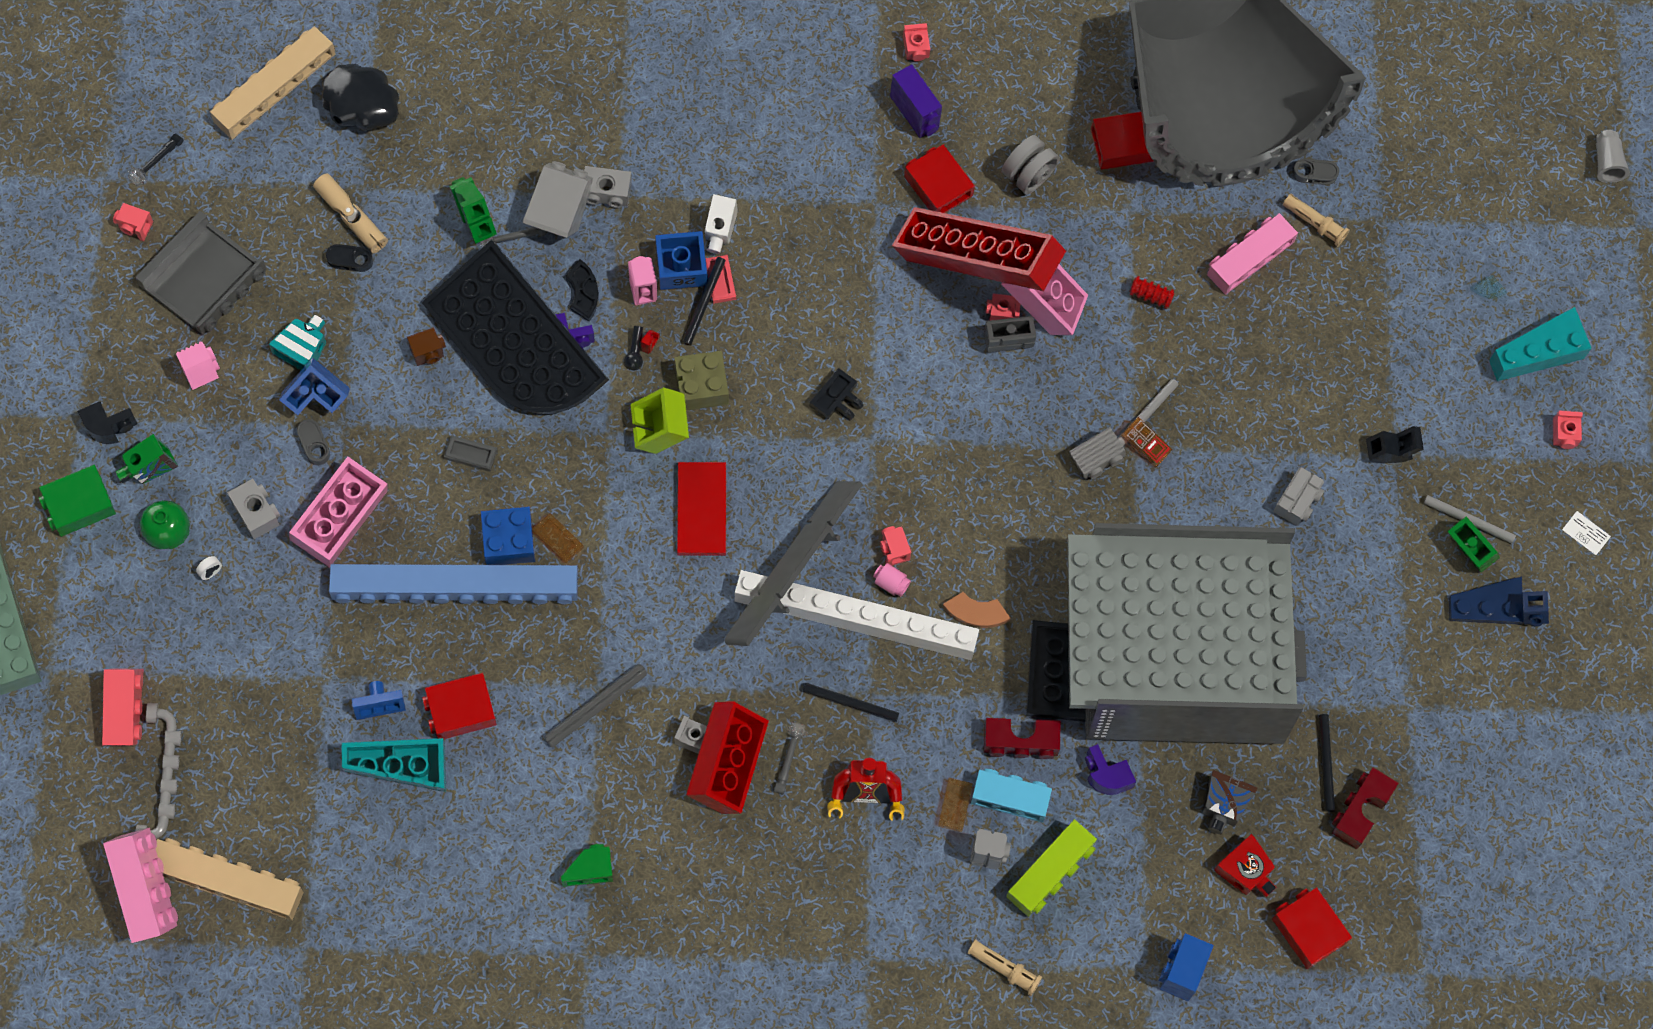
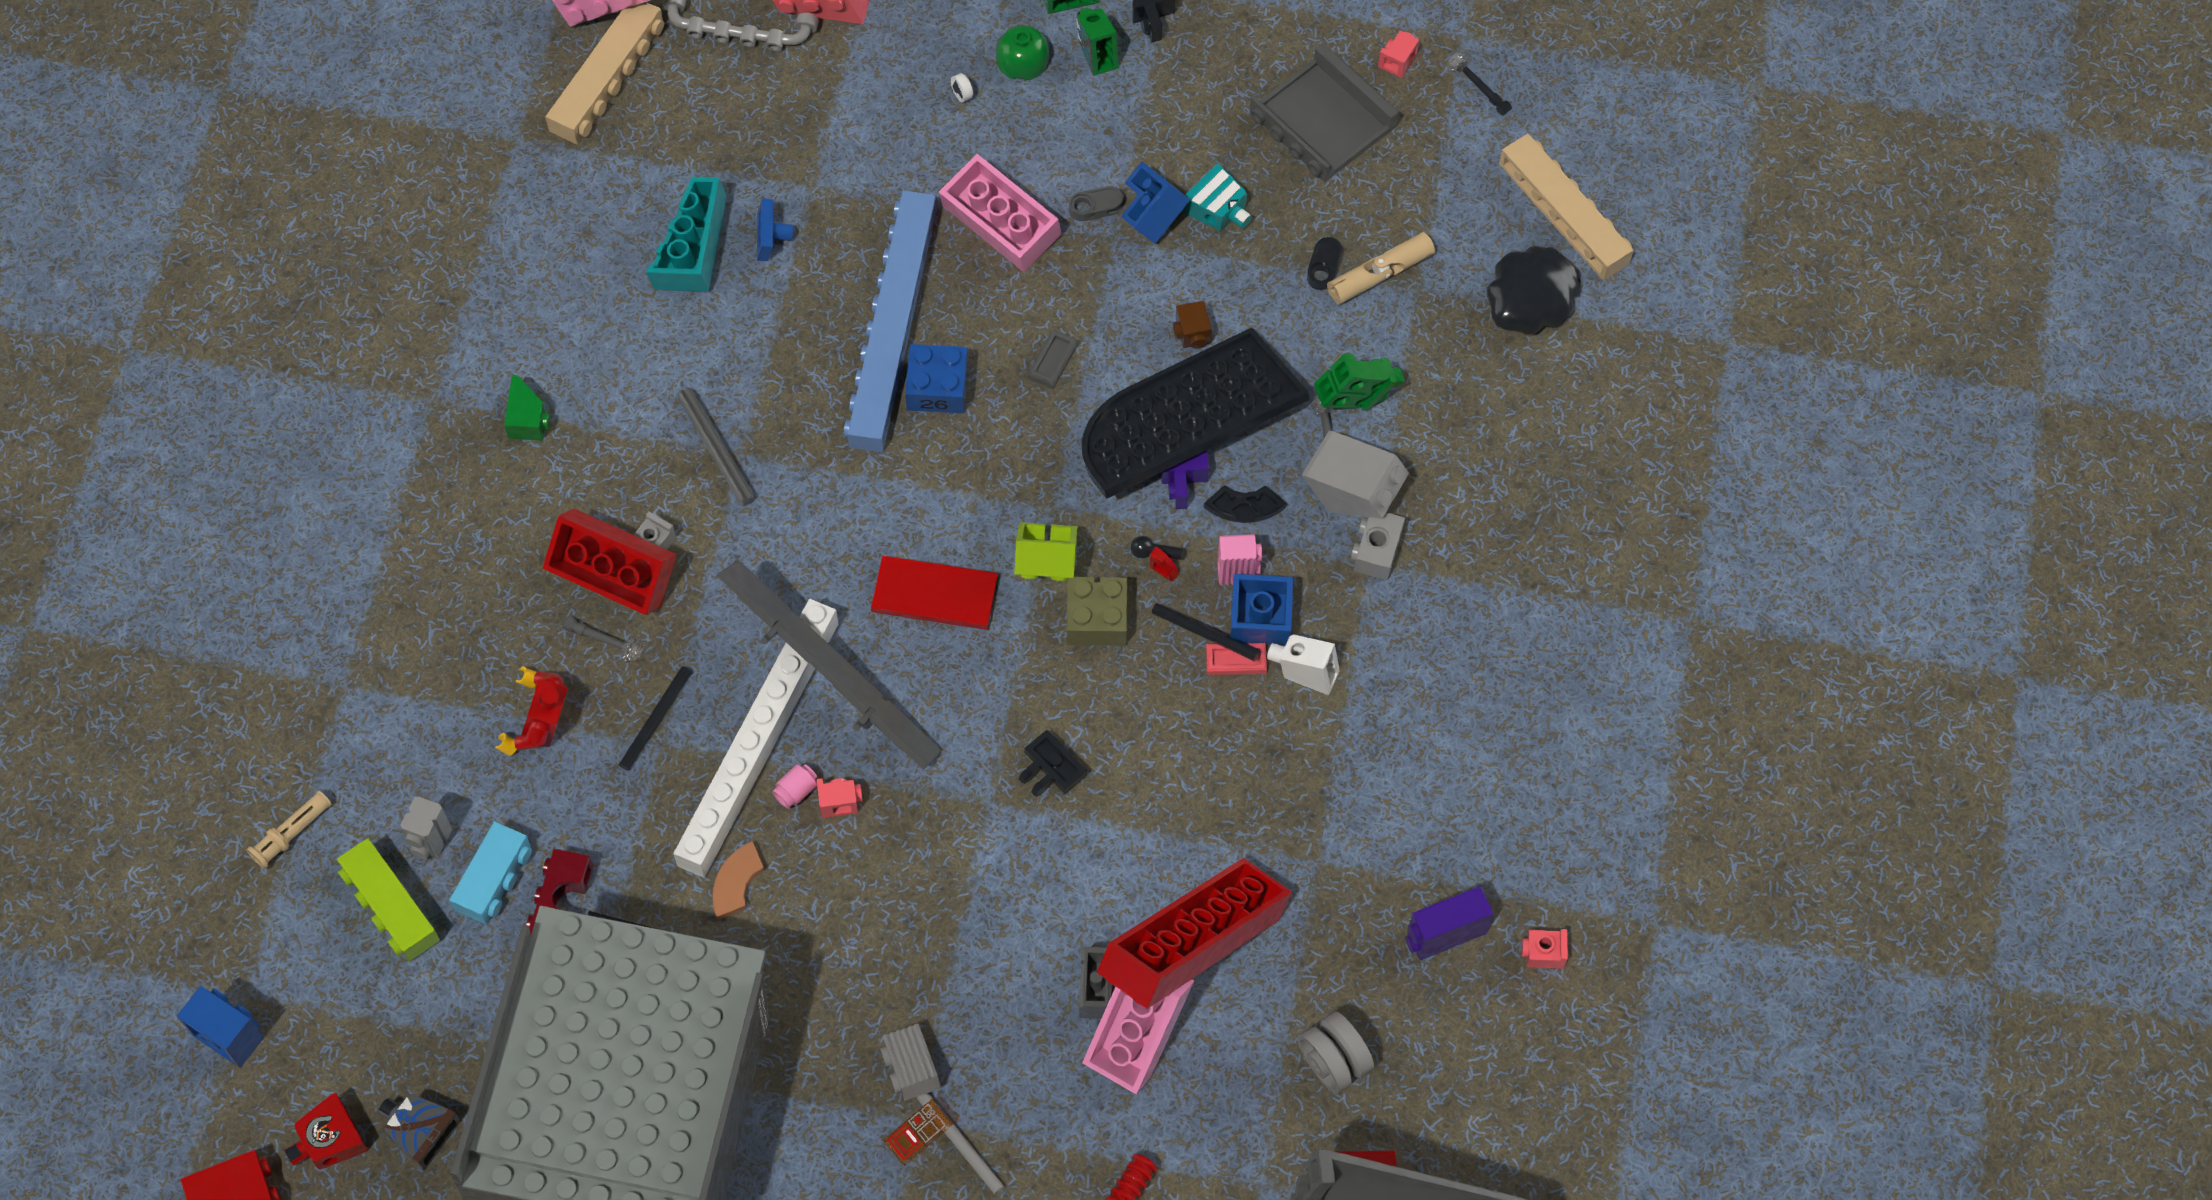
camera: 105 degrees right, 5 degrees down
(198, 365) = (1202, 91): bright pink brick -> none
(258, 521) = (1029, 124): light grey brick -> none
(459, 706) = (743, 308): red brick -> none
(558, 538) = (929, 435): clear orange tile -> none
(939, 180) = (1334, 939): red brick -> none
(955, 804) = (491, 807): clear orange tile -> none
(1105, 778) = (481, 994): dark purple brick -> none

